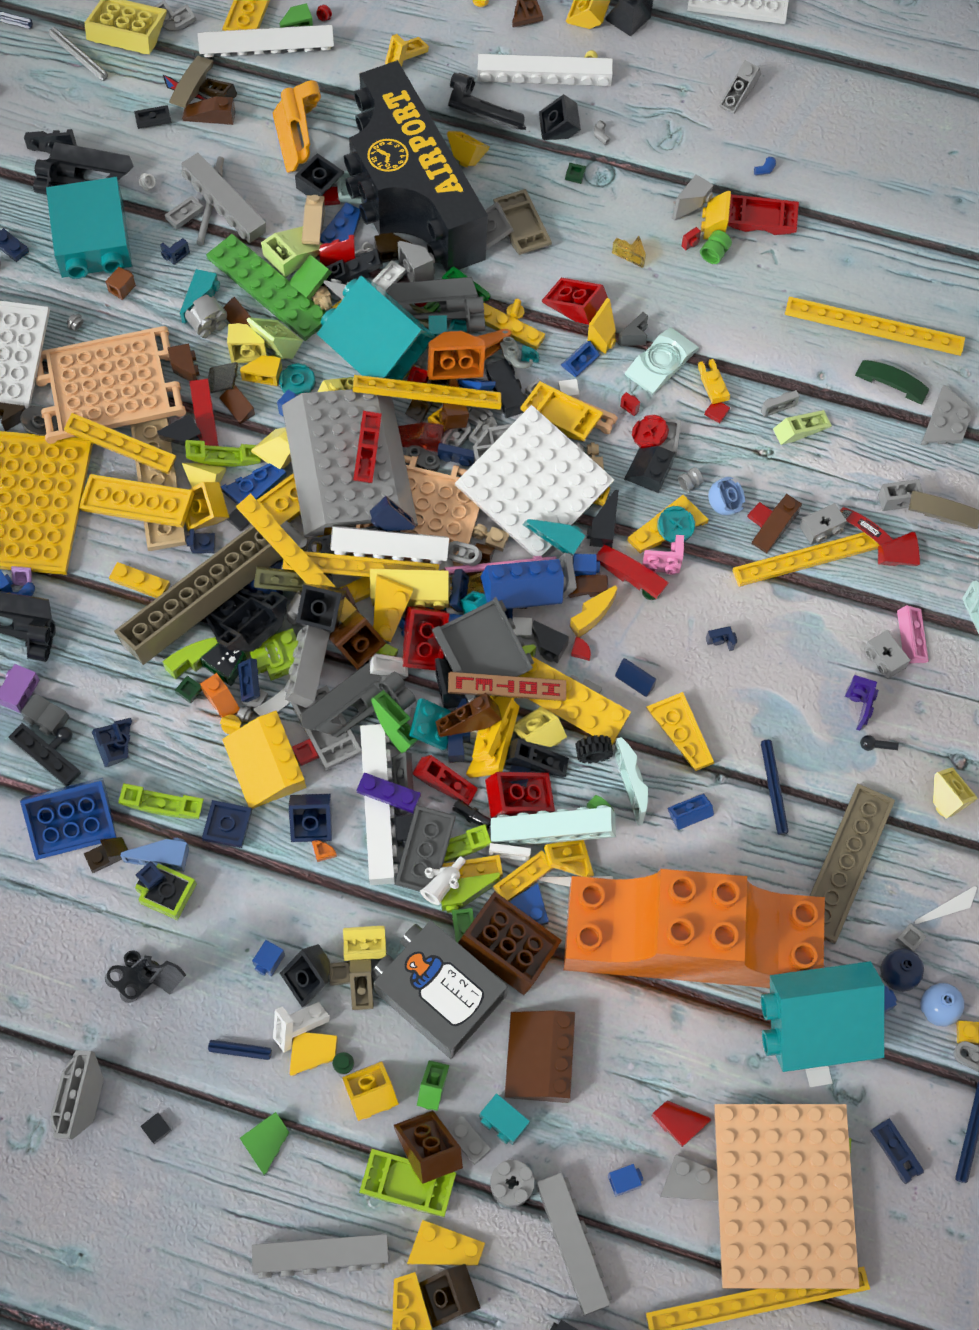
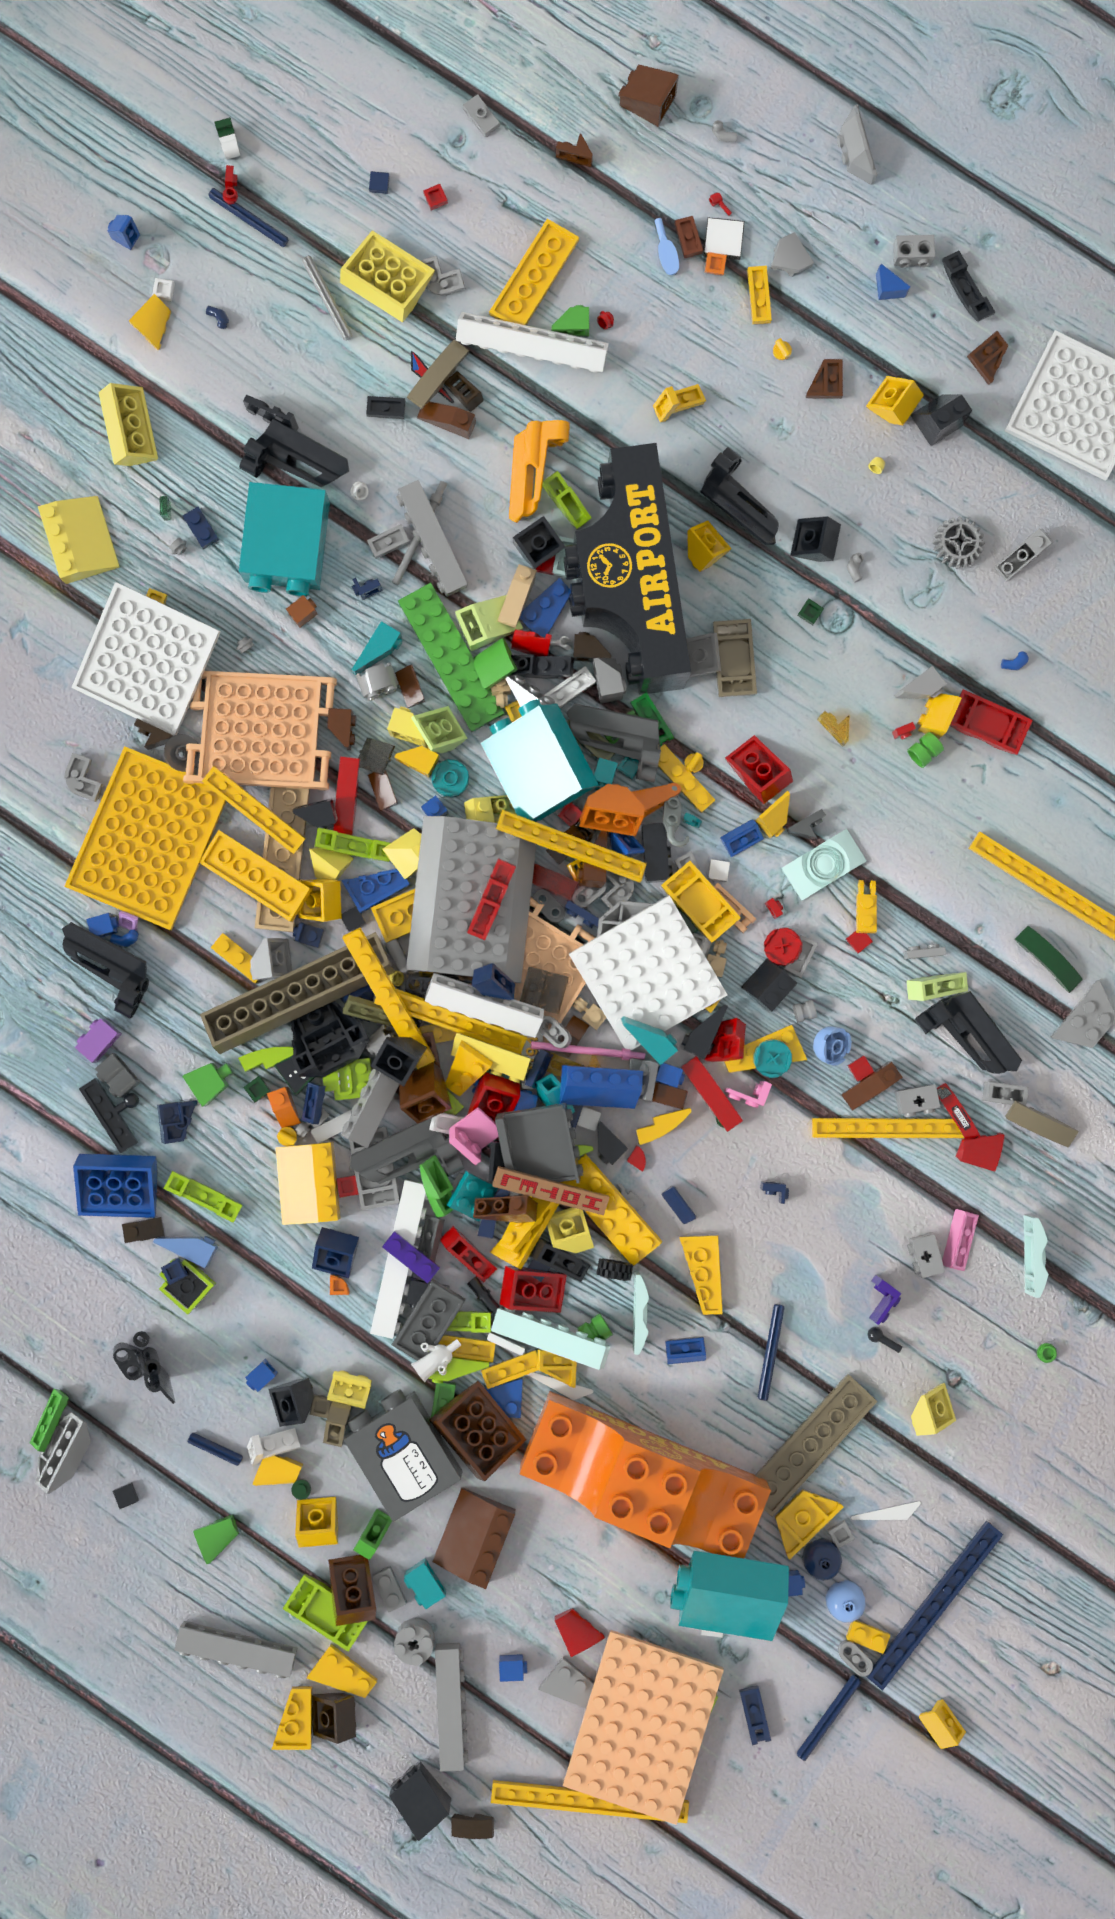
camera: 15 degrees right, 20 degrees up
(53, 1071) = (49, 1420): none -> bright green plate
(137, 695) = (208, 1082): none -> bright green torso
(169, 566) = (271, 959): none -> light grey slope
(227, 824) = (257, 1235): dark blue plate -> none
(329, 142) = (566, 499): none -> lime slope
(416, 662) = (473, 1134): none -> bright pink bracket
(442, 521) = (544, 990): none -> clear smoke slope
(544, 69) = (821, 469): white brick -> none
(629, 523) = (728, 1041): none -> red slope
(681, 93) = (971, 541): none -> light grey gear
(838, 443) = (963, 1016): none -> black panel
(869, 932) = (804, 1519): none -> yellow wing

